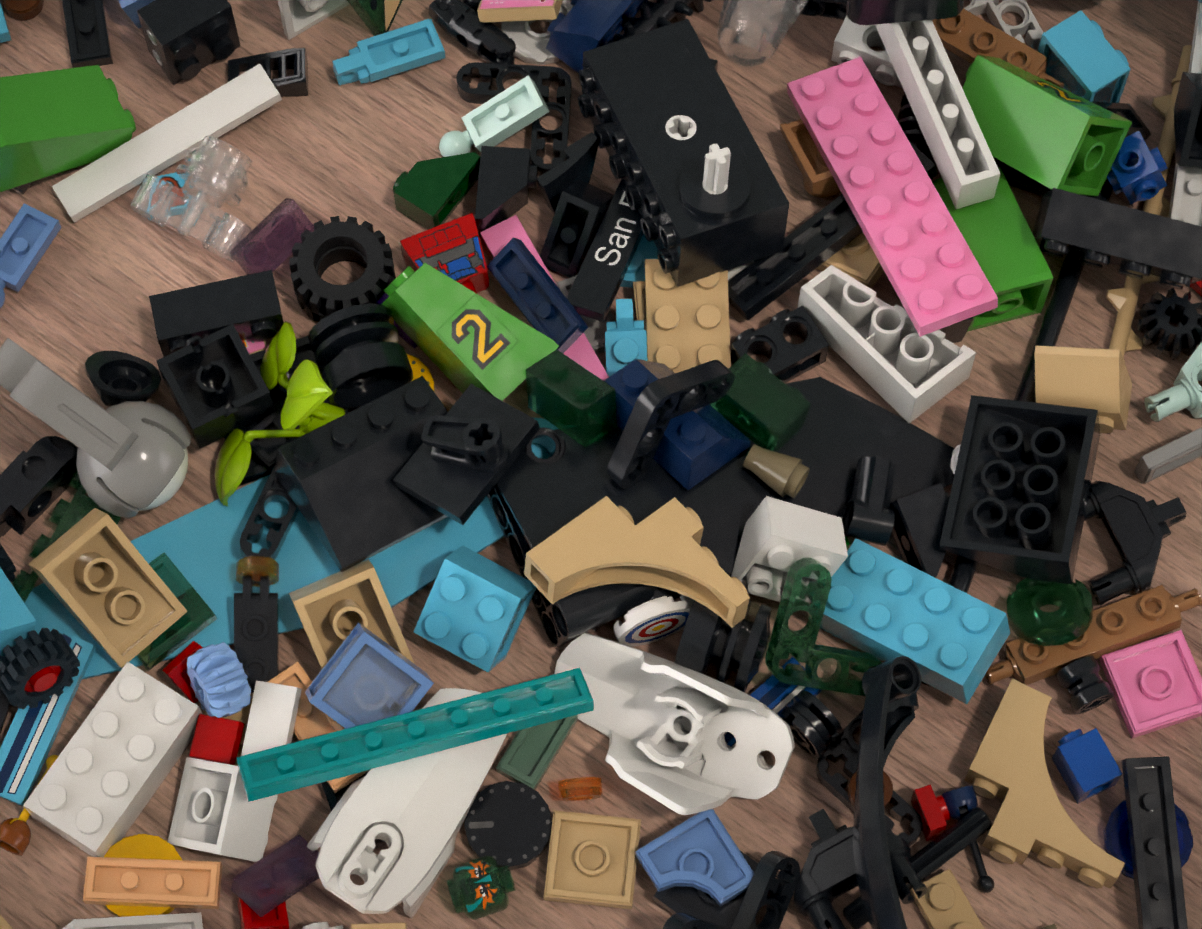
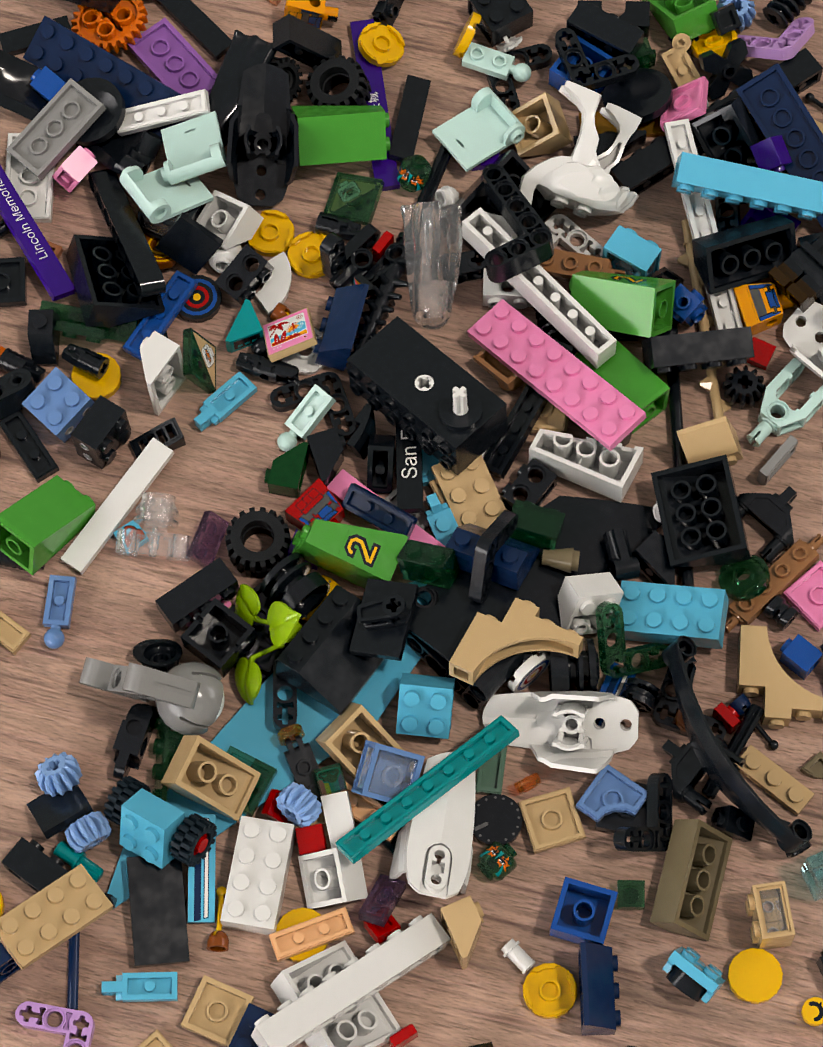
camera: 20 degrees left, 0 degrees up
(283, 661) = (330, 779): none -> clear green tile

